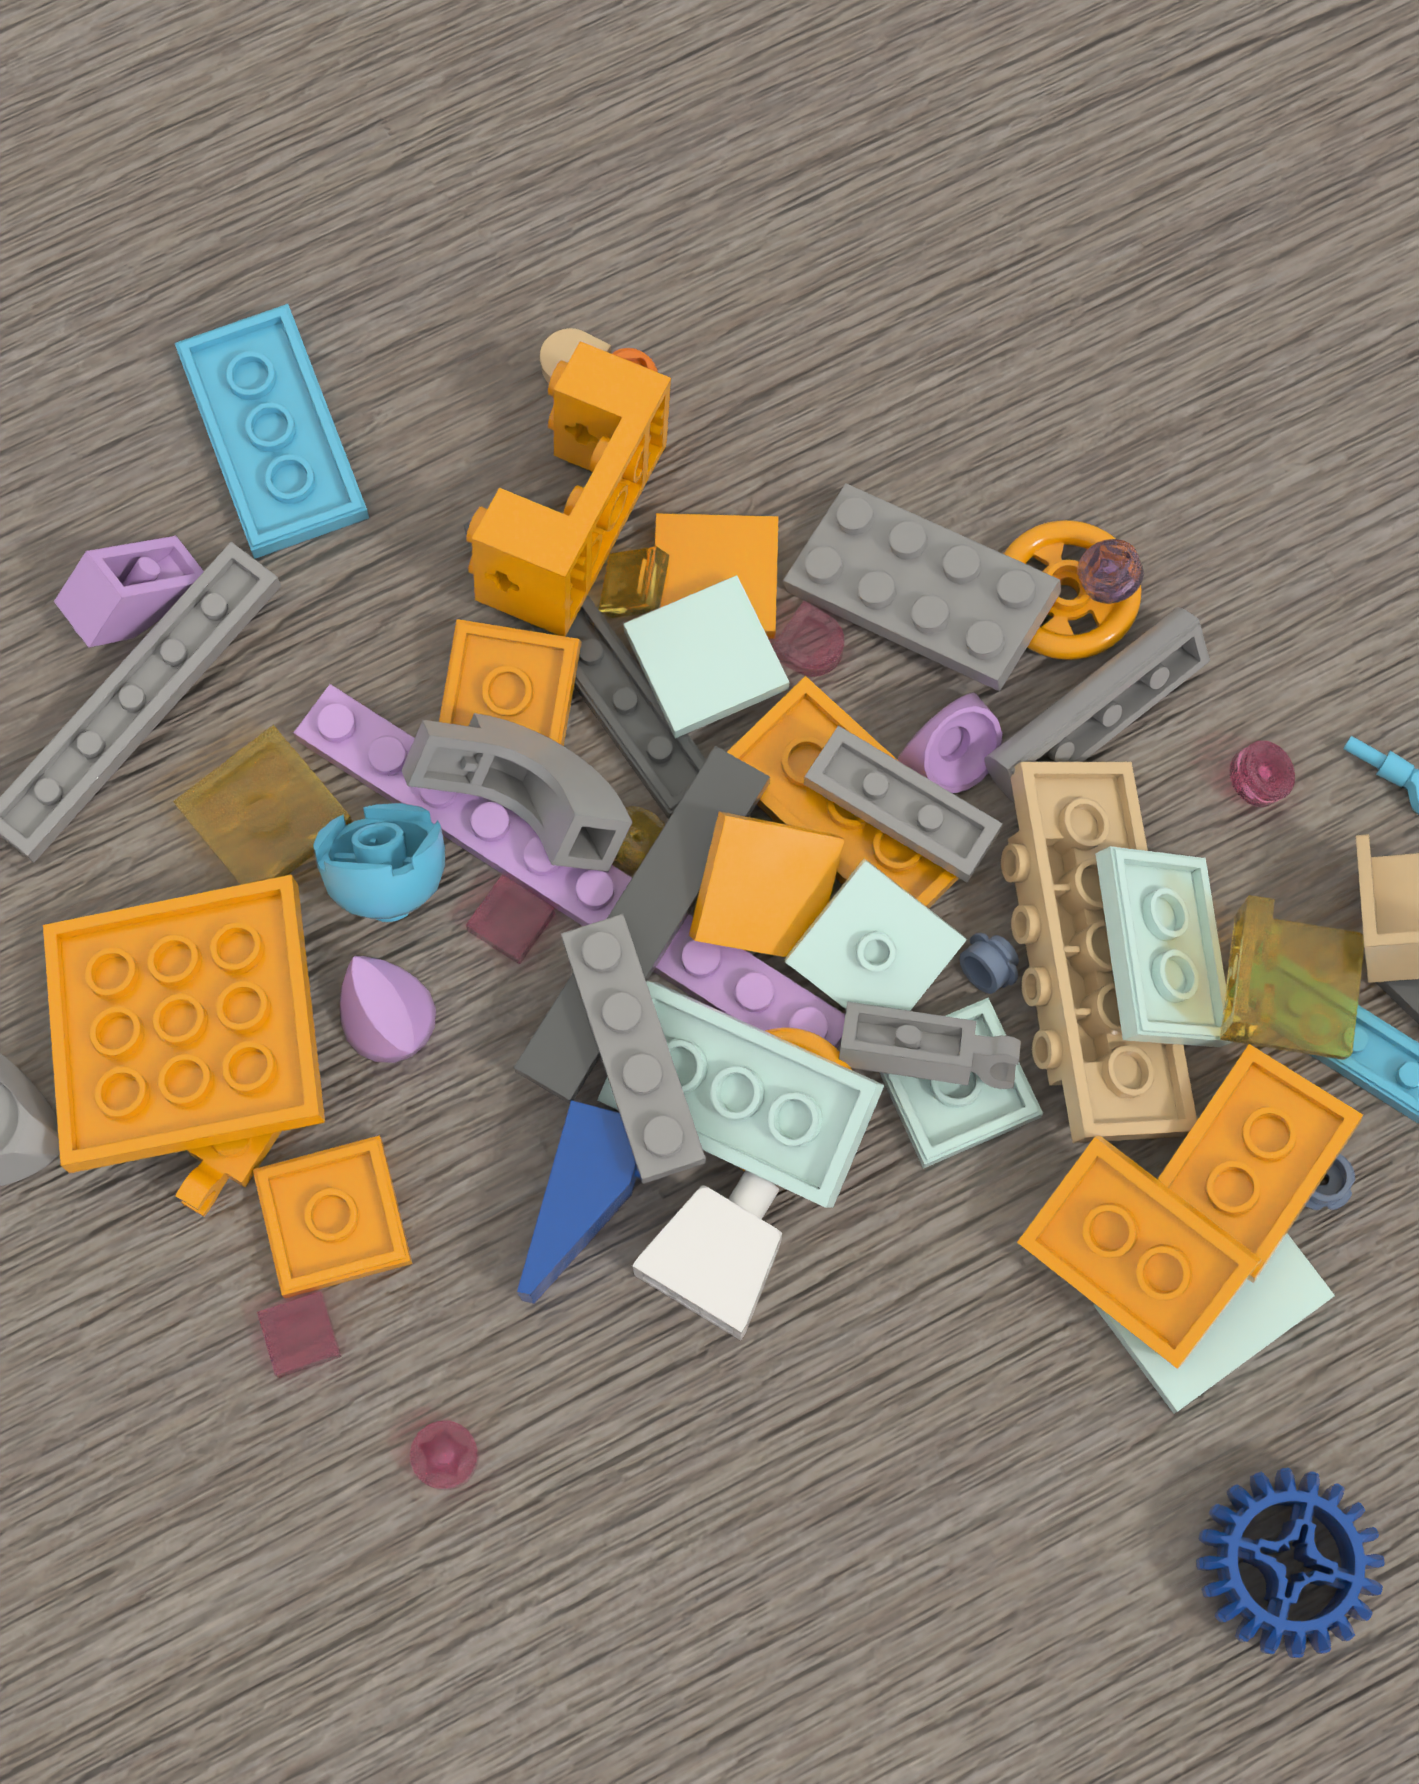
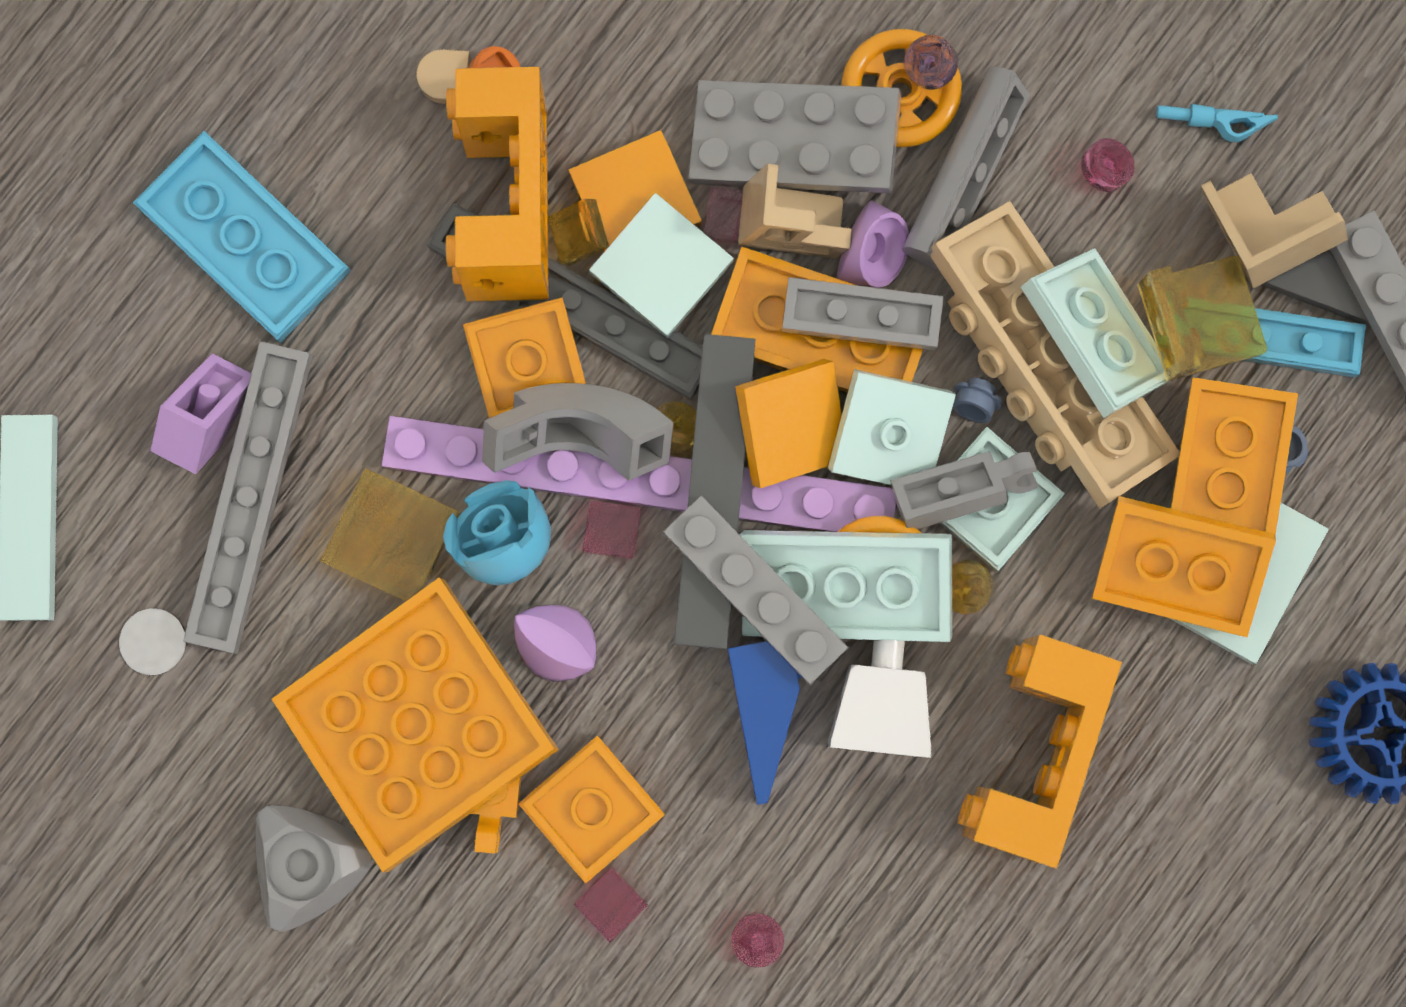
camera: 25 degrees left, 10 degrees up
(874, 672) = (791, 218): none -> tan panel
(881, 1166) = (970, 586): none -> clear yellow tile
(942, 1316) = (1085, 686): none -> light orange plate

